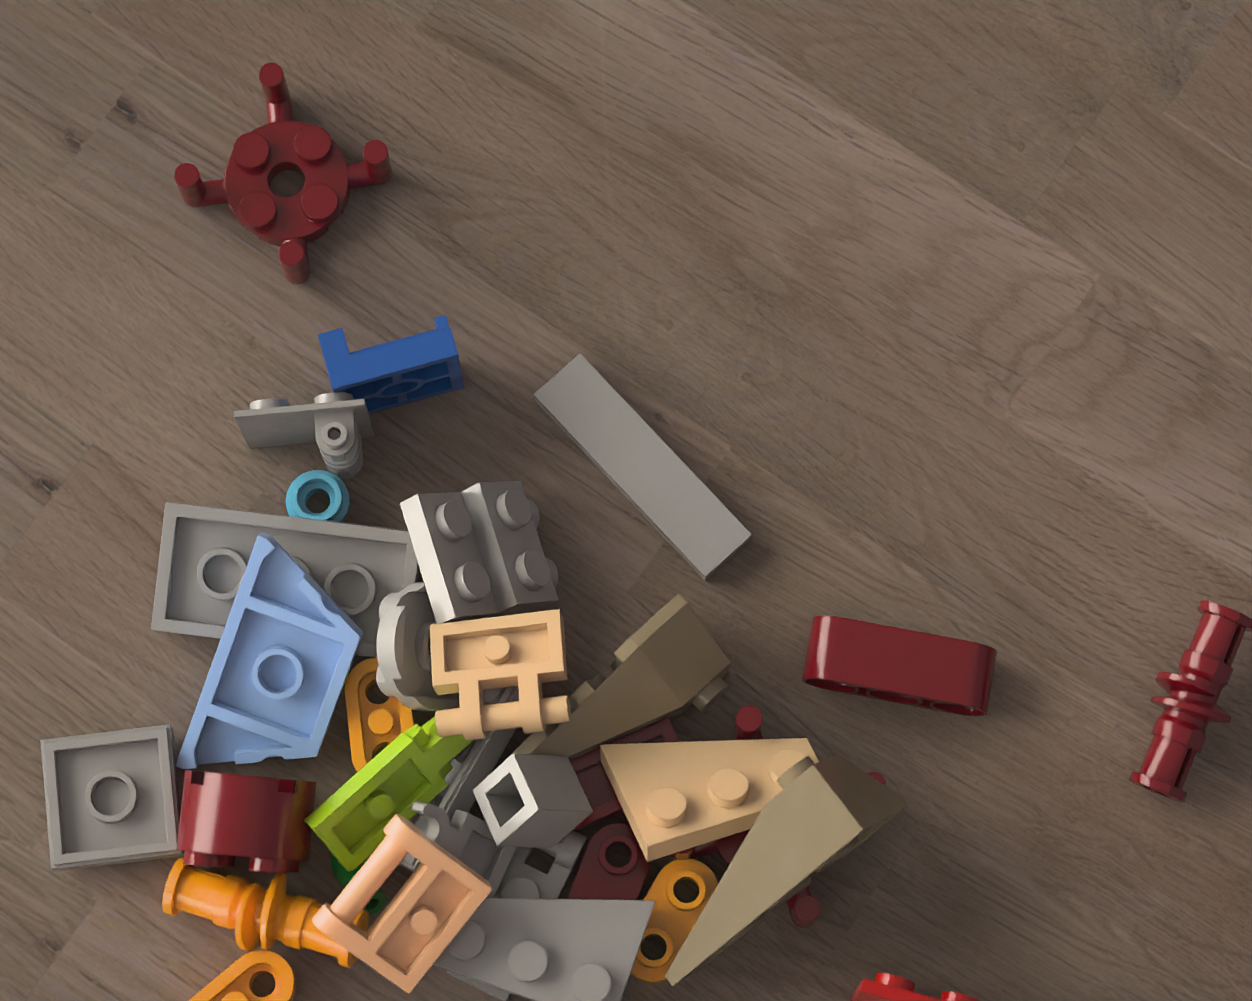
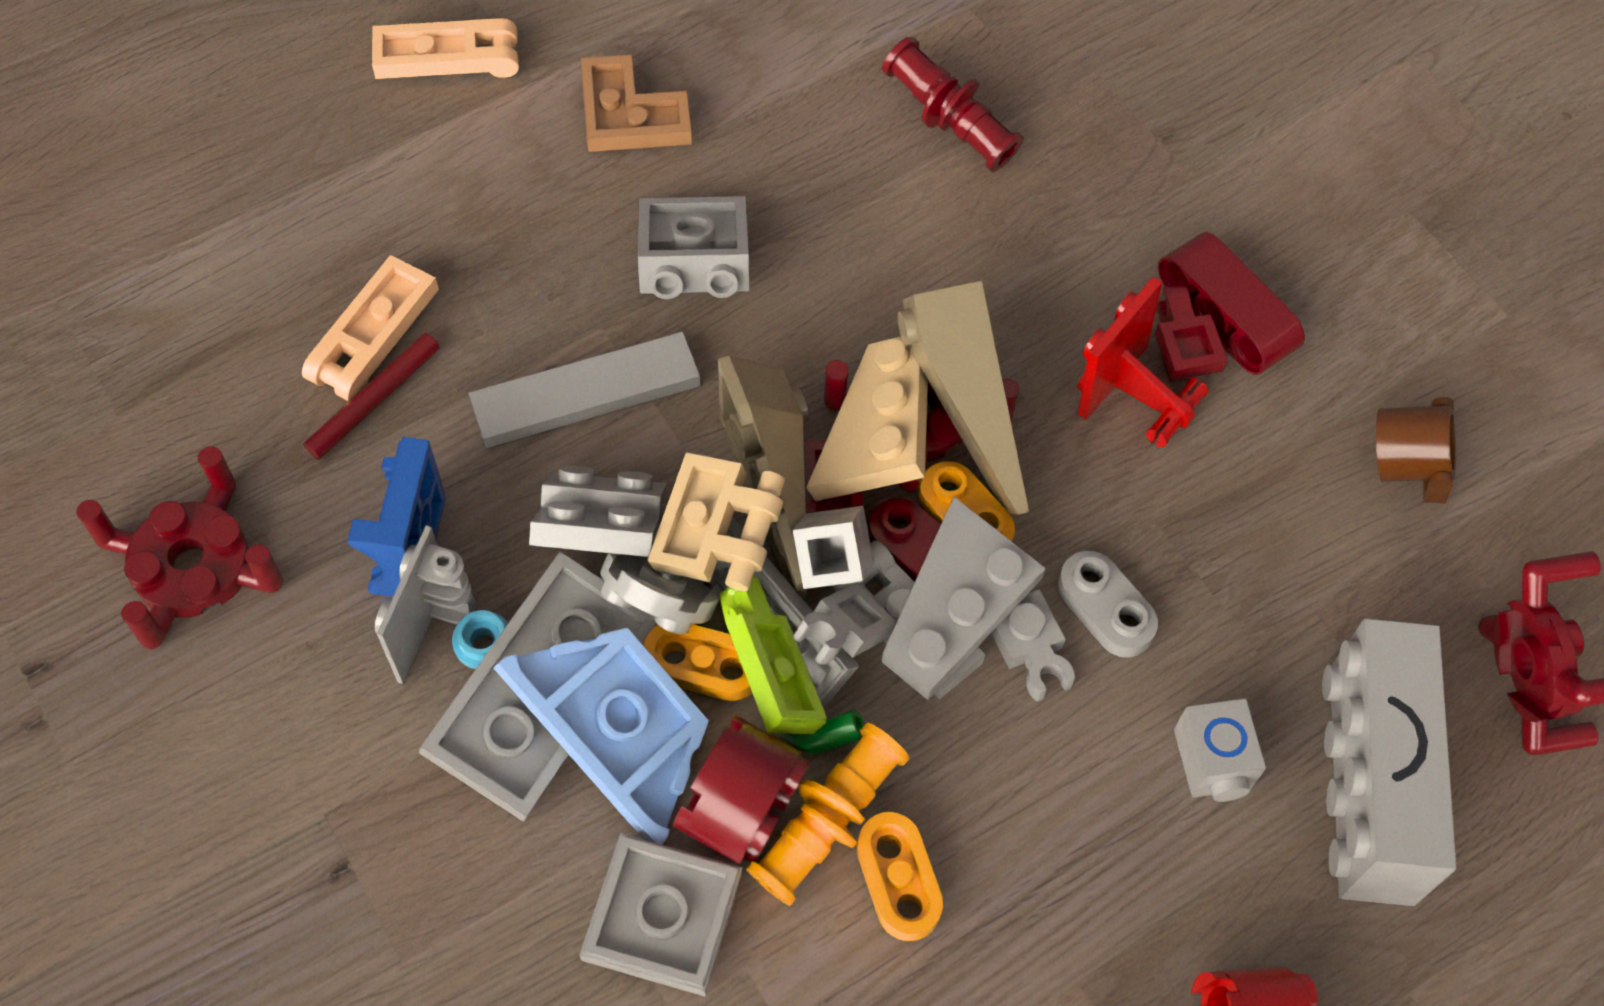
camera: 70 degrees left, 15 degrees down
(418, 918) = (896, 662): light nougat plate -> none
(541, 259) = (371, 396): none -> dark red bar
(614, 218) = (370, 327): none -> light nougat plate
(862, 497) = (693, 246): none -> light grey plate
(899, 665) = (835, 274): dark red beam -> none
(1003, 343) = (628, 120): none -> medium nougat plate
(1005, 108) = (445, 48): none -> light nougat plate

